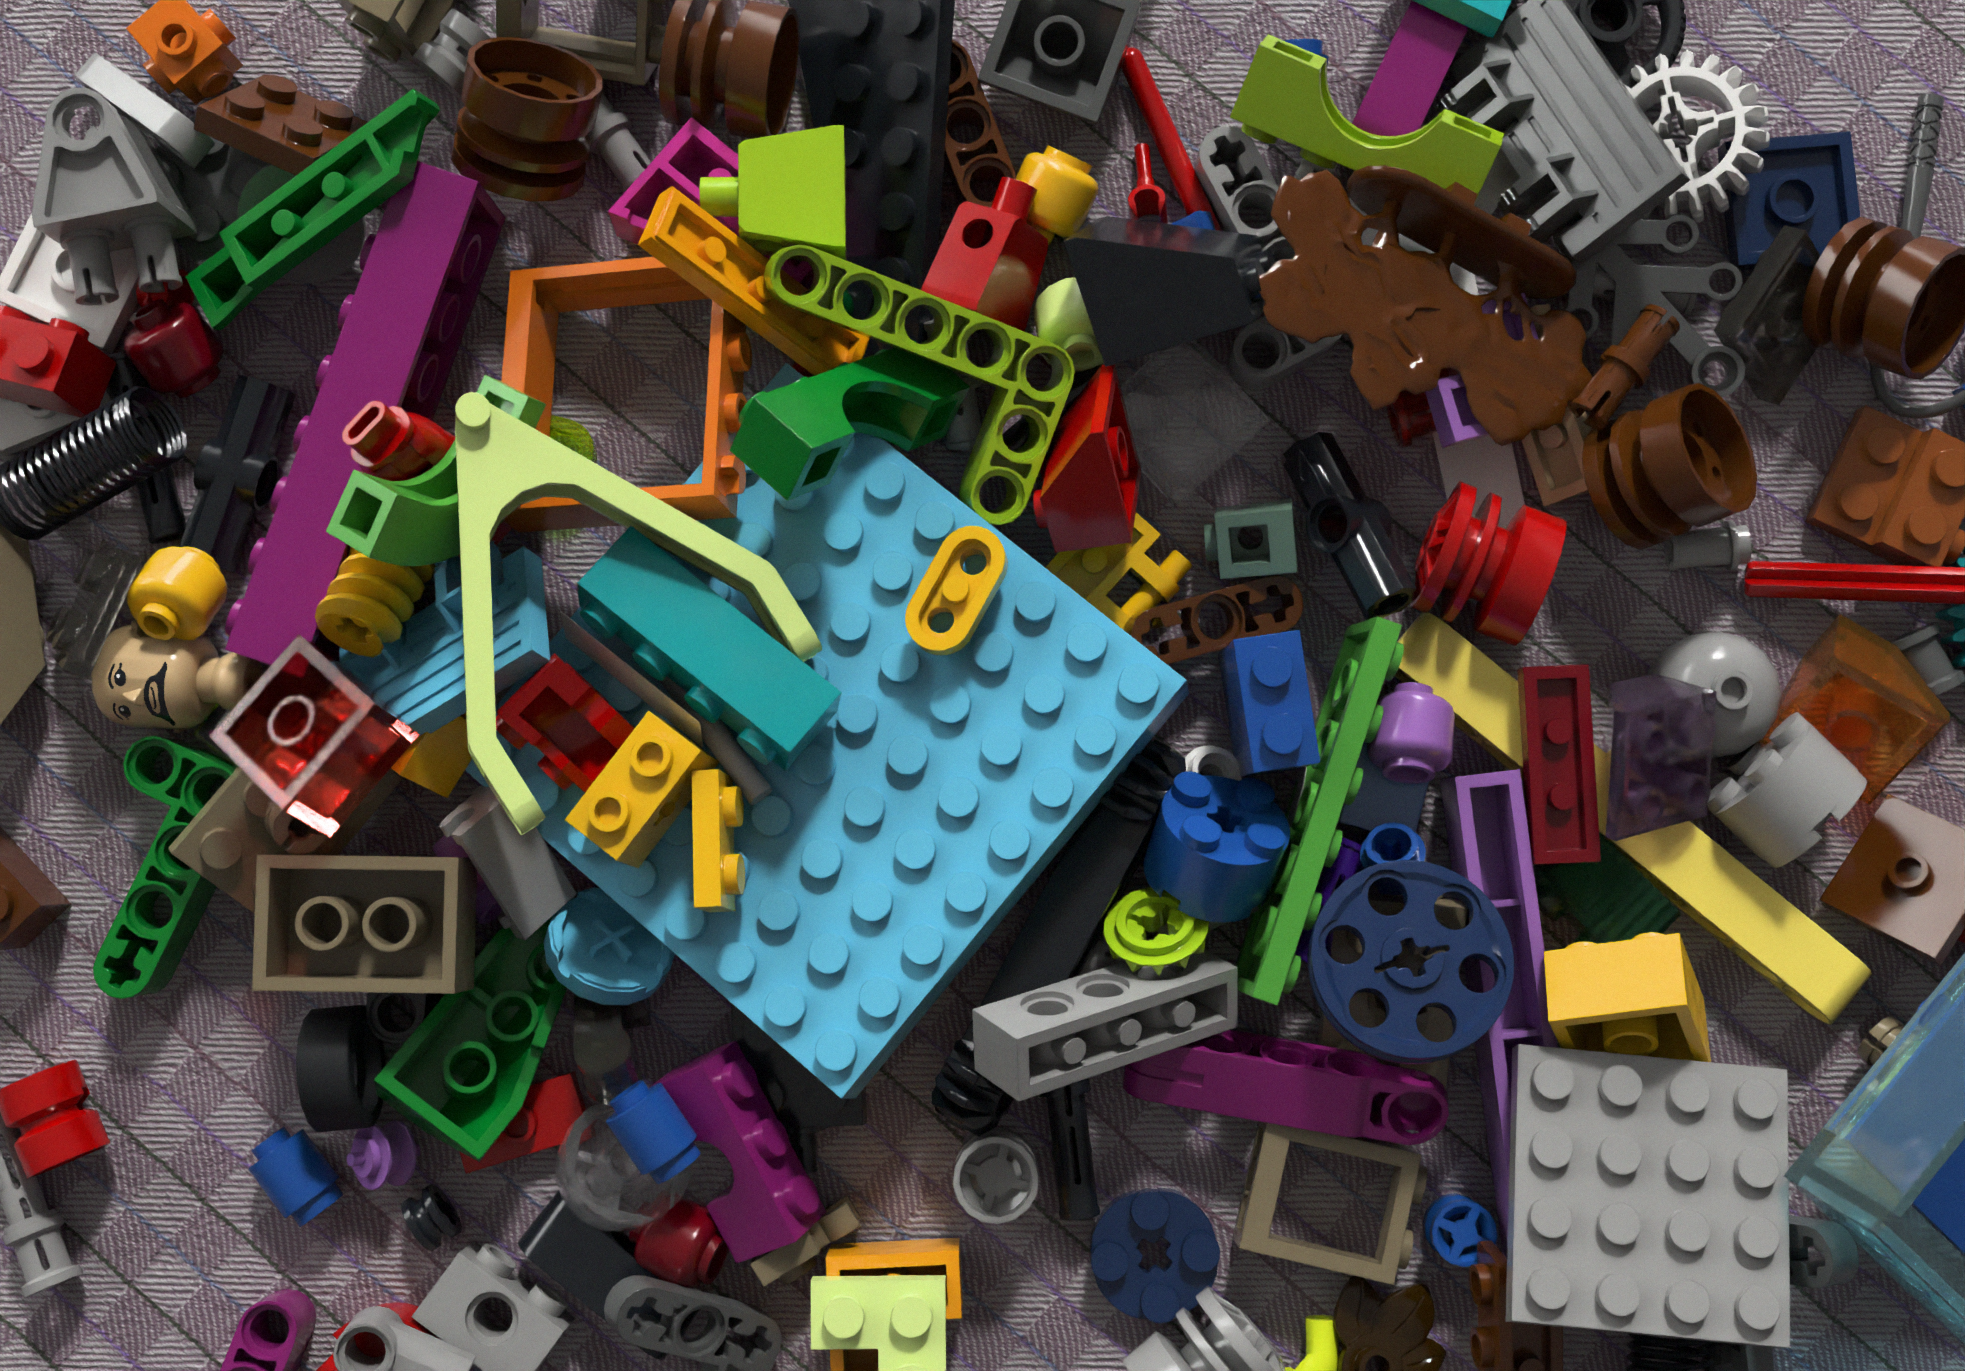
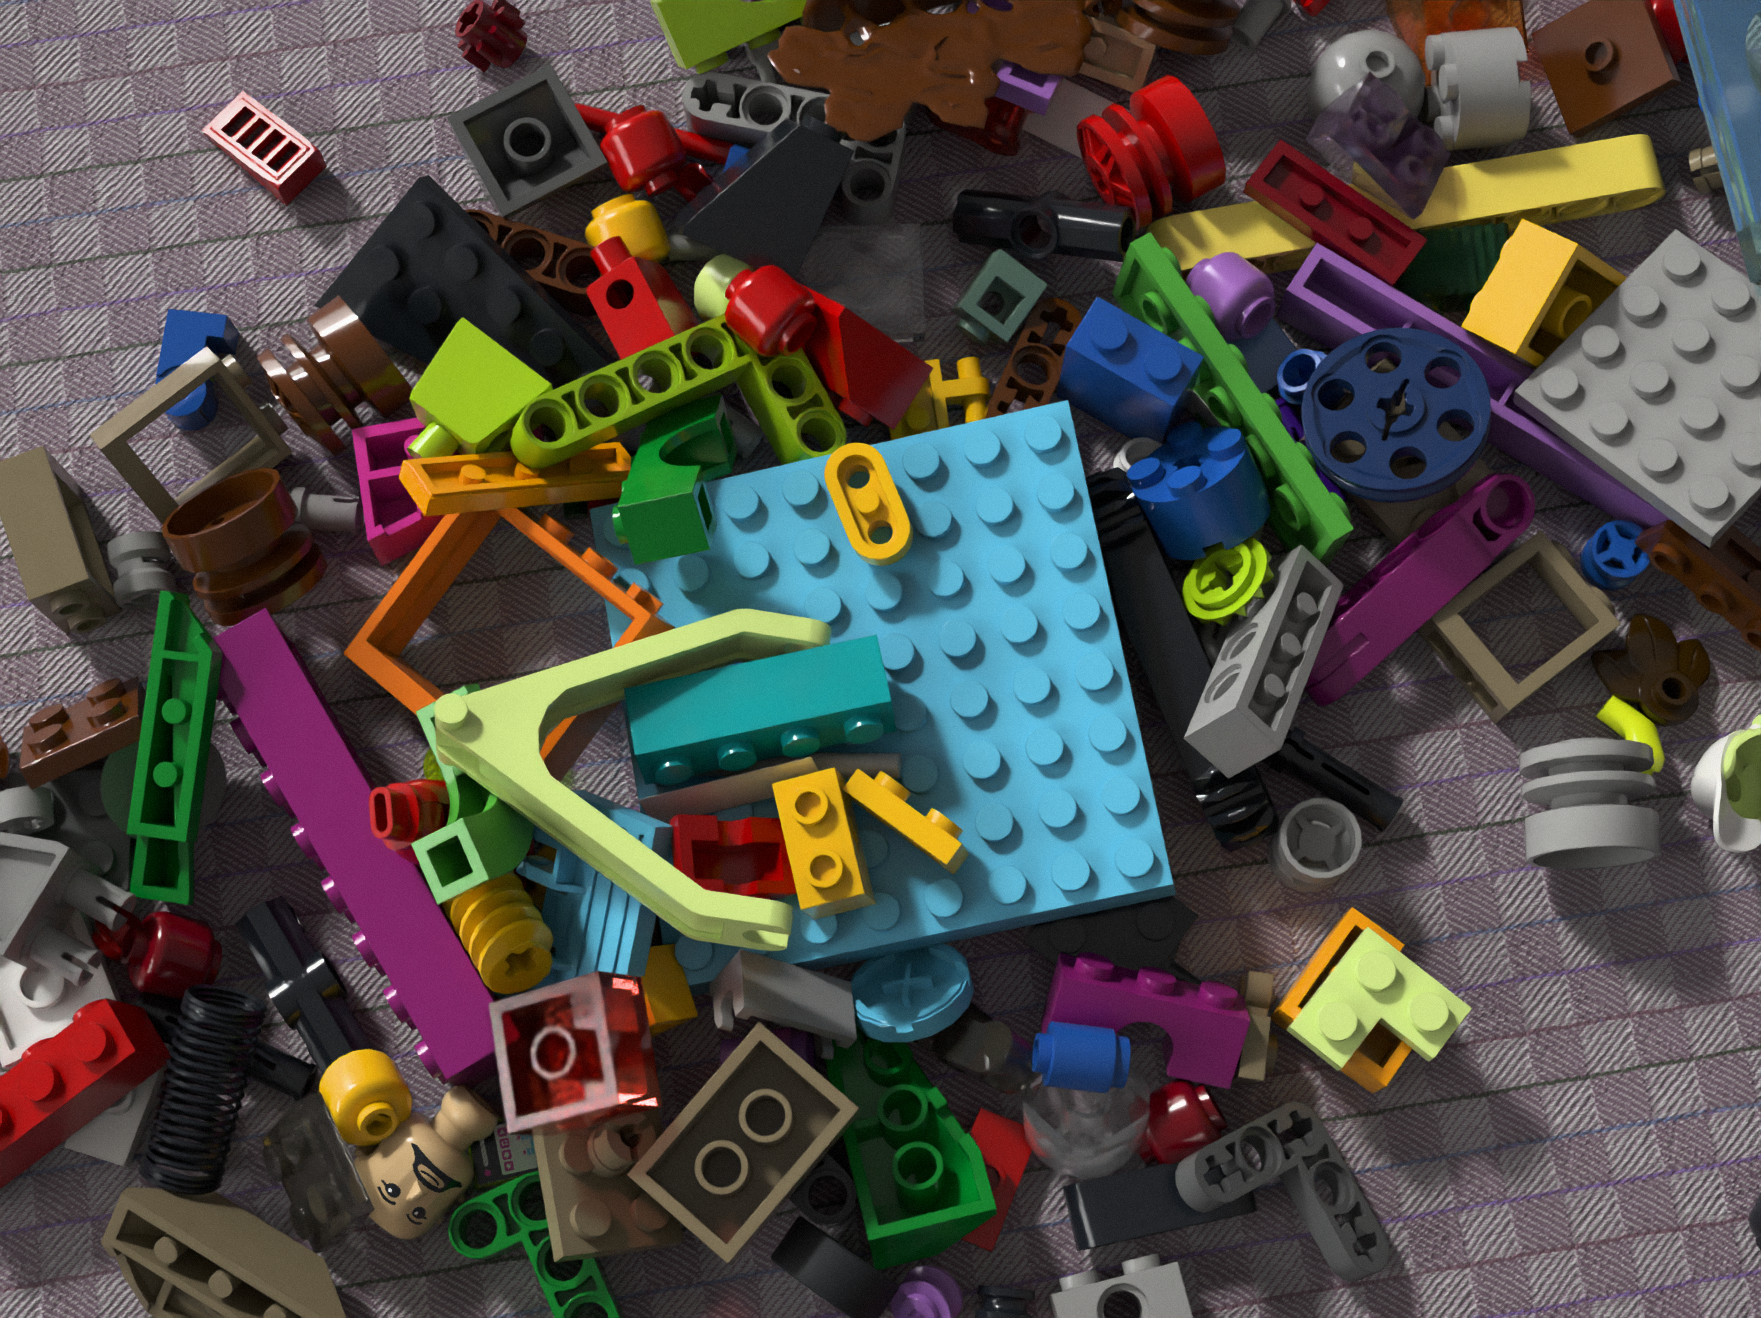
camera: 55 degrees left, 10 degrees down
(1057, 370) = (770, 311): none -> red head
(1116, 1259) = (1444, 815): dark blue plate -> none
(1134, 142) = (643, 151): none -> red head

